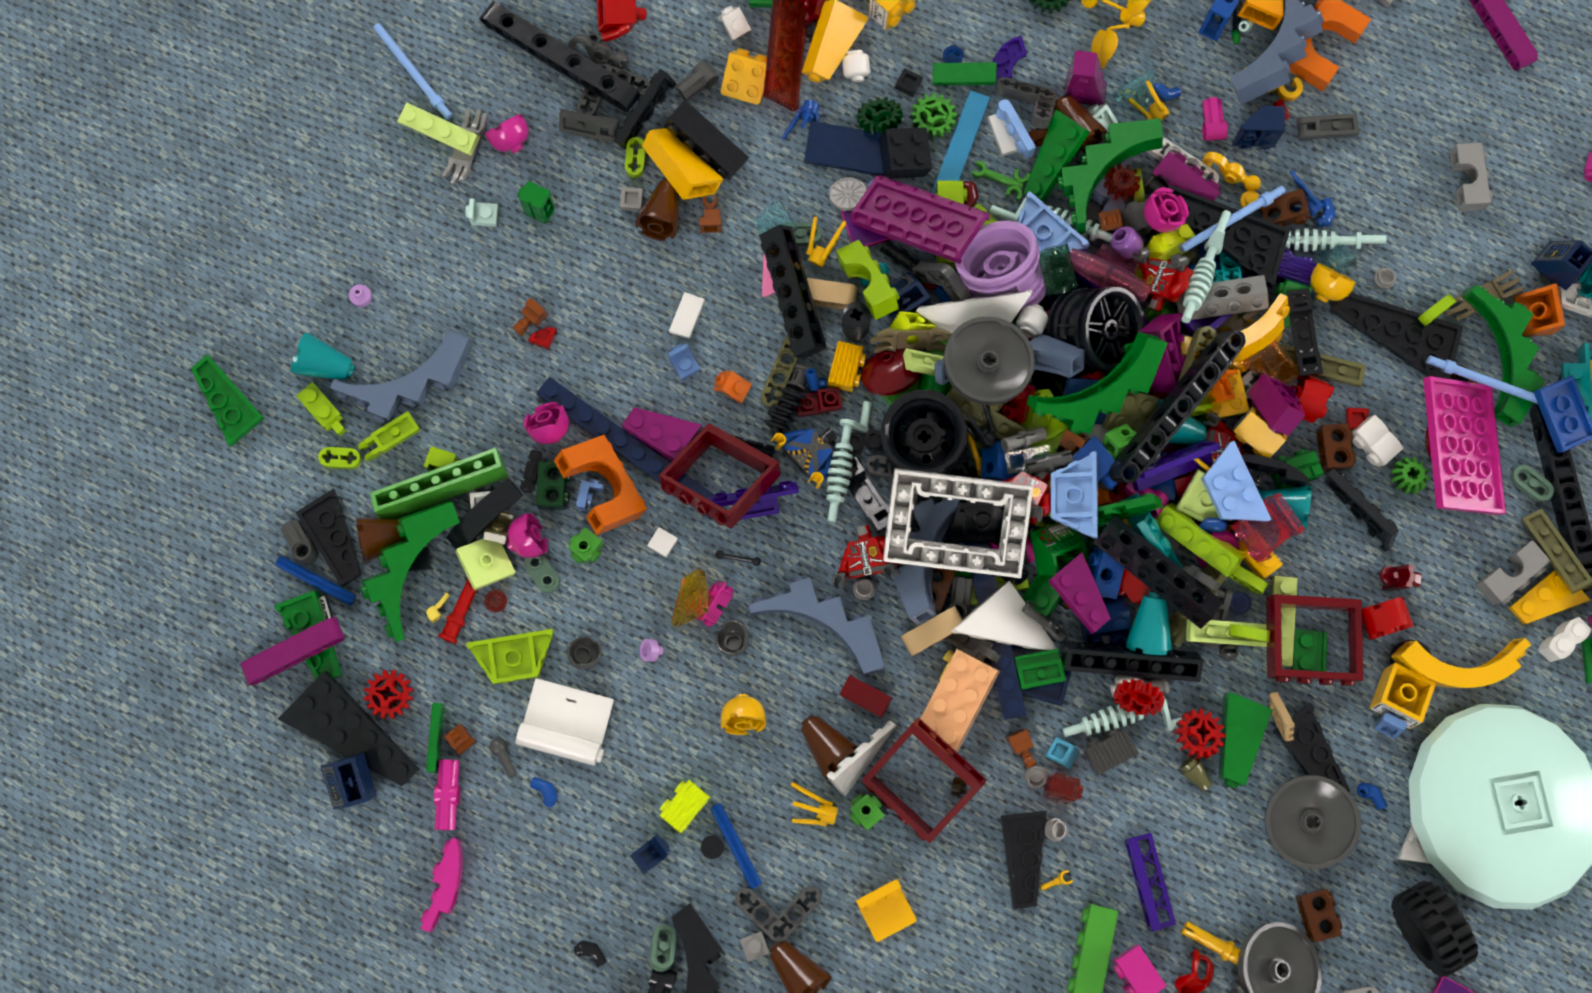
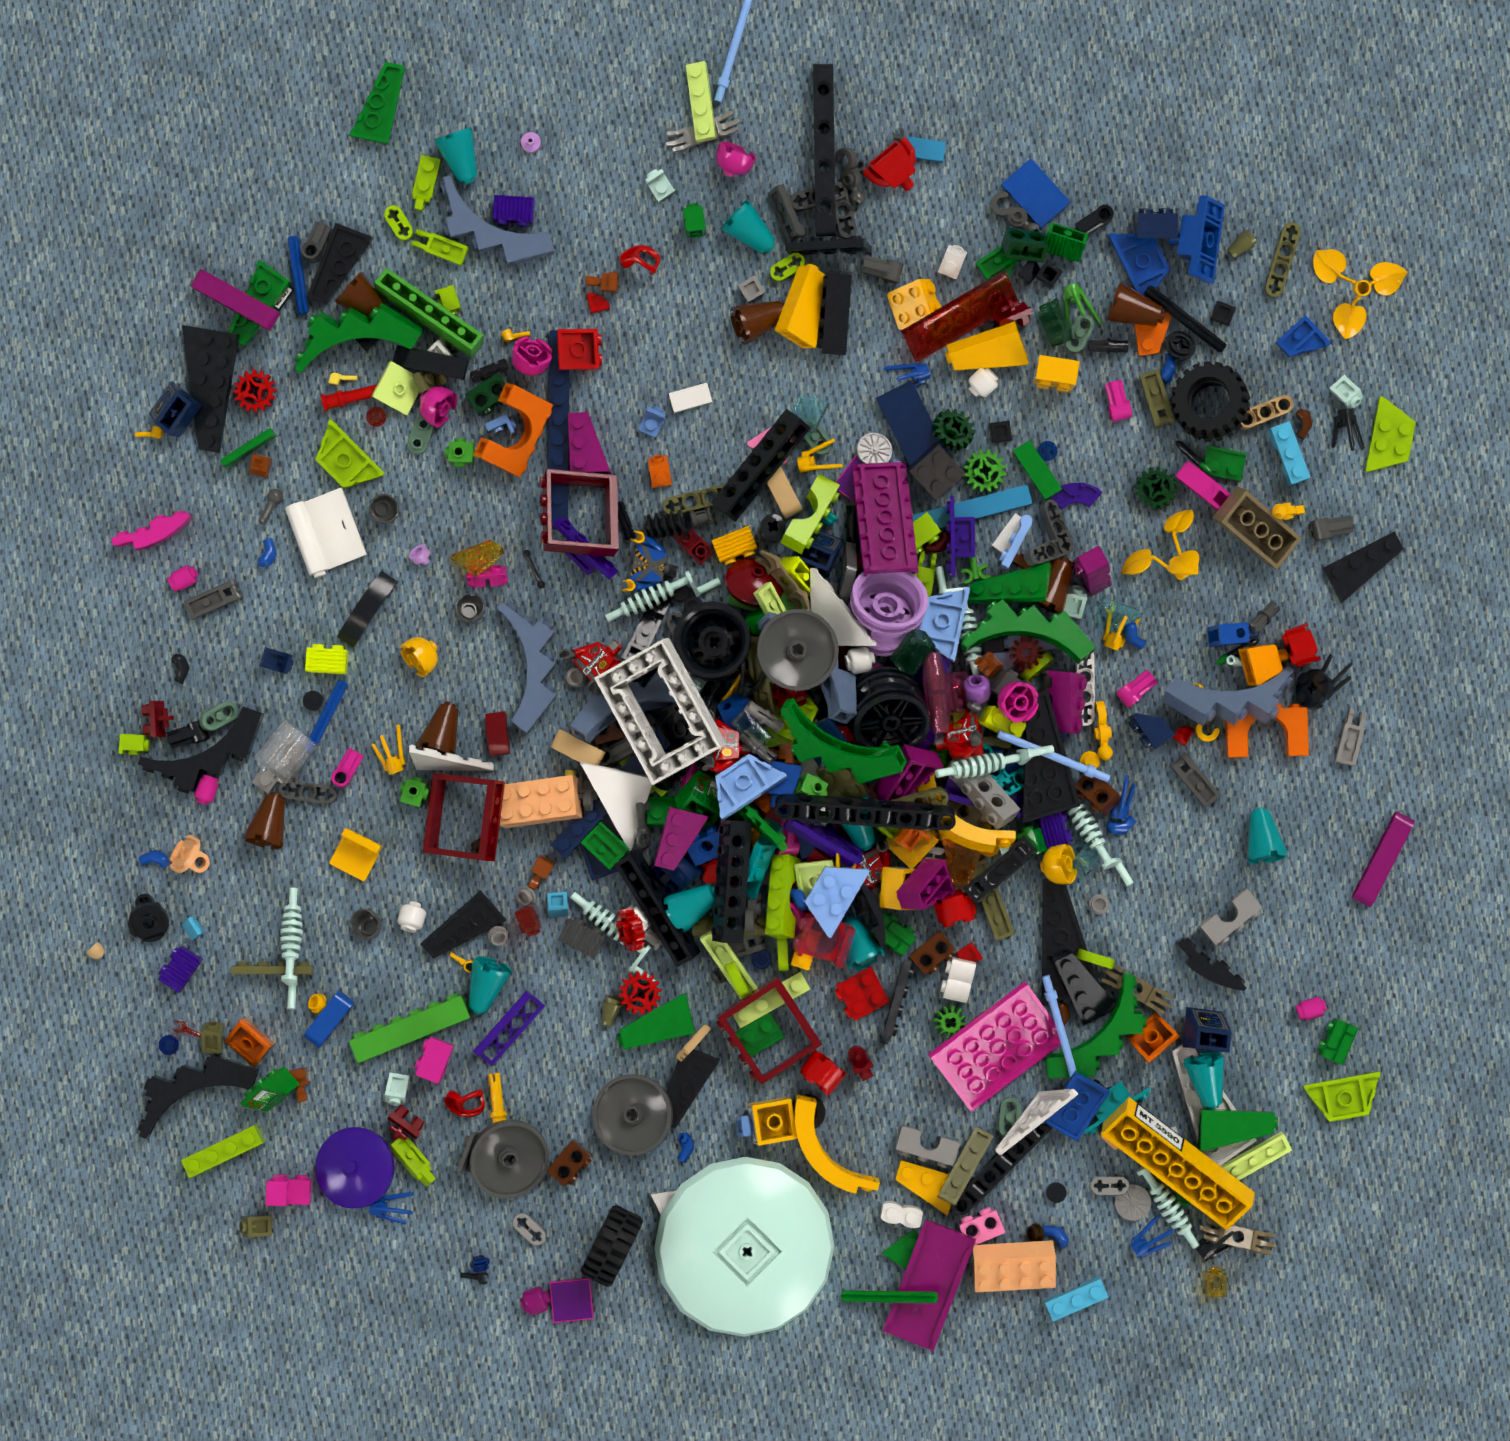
camera: 55 degrees right, 10 degrees up
(356, 815) = (156, 432): none -> yellow hand
(407, 350) = (513, 210): none -> dark purple brick
(447, 795) = (215, 486): dark pink piece -> none
(509, 887) = (183, 578): none -> dark pink brick
(514, 433) = (508, 336): none -> yellow hand
(525, 278) = (631, 256): none -> red piece
(549, 874) = (212, 599): none -> dark grey plate
(572, 378) = (578, 349): none -> red plate
(577, 163) = (749, 228): none -> teal cone
(662, 542) = (505, 505): white tile -> none
(664, 735) = (366, 608): none -> black slope
(712, 217) = (779, 361): dark orange piece -> none
(743, 907) = (285, 752): none -> clear brick
(797, 857) = (348, 766): none -> dark pink piece
(813, 381) = (705, 530): blue arm -> none
(959, 948) = (365, 924): none -> dark grey hair
(977, 170) = (962, 537): none -> dark purple bracket
(982, 899) = (411, 917): none -> white head
(1094, 871) = (486, 983): none -> teal cone
(1331, 536) = (861, 994): none -> red plate
(1419, 102) = (1264, 838): none -> teal cone
(1459, 339) = (1084, 991): none -> black wing
(1506, 224) = (1215, 972): none -> black slope
(1550, 451) = (1039, 1110): none -> white tile

